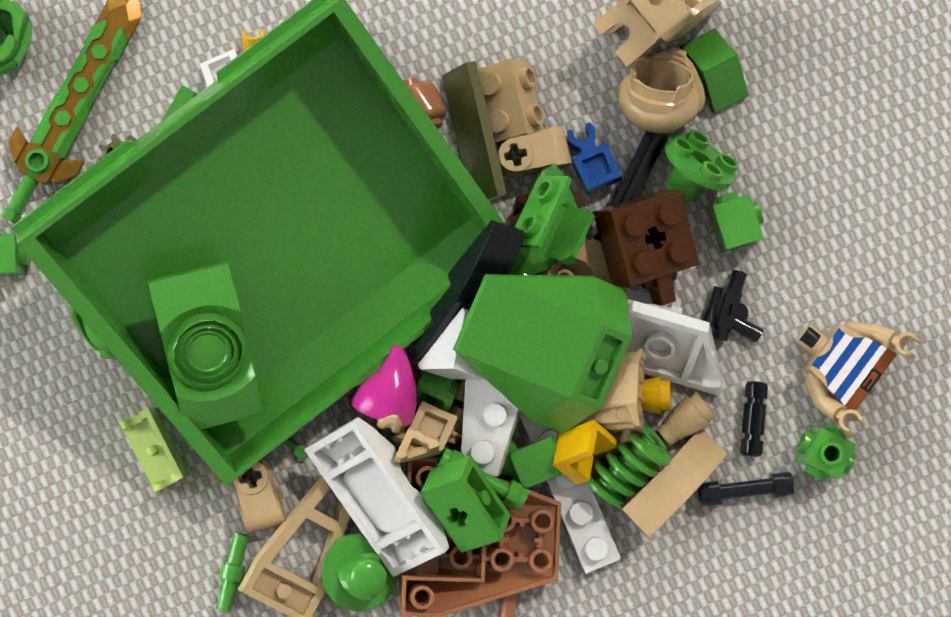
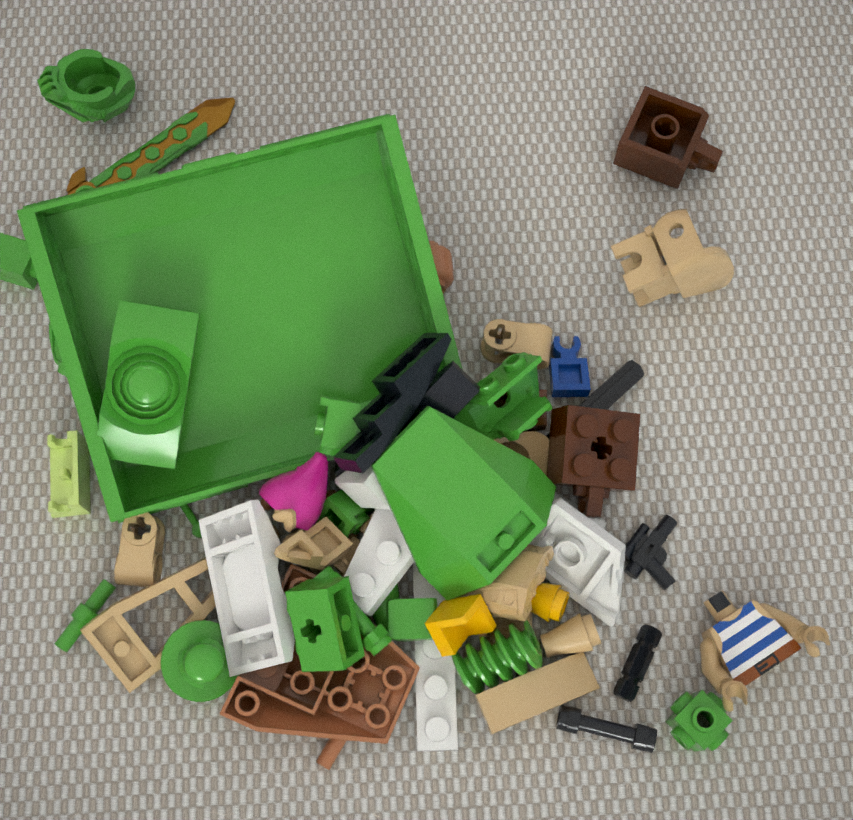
camera: 25 degrees right, 15 degrees down
(402, 316) = (336, 424): none -> bright green brick
(453, 267) = (401, 391): none -> black slope
(474, 129) = (471, 302): olive piece -> none
(511, 99) = (511, 290): tan bracket -> none
(662, 92) = (653, 331): tan helmet -> none
(697, 165) = (663, 406): bright green plate -> none
(717, 69) = (709, 335): bright green slope -> none
(736, 221) = (683, 470): bright green brick -> none

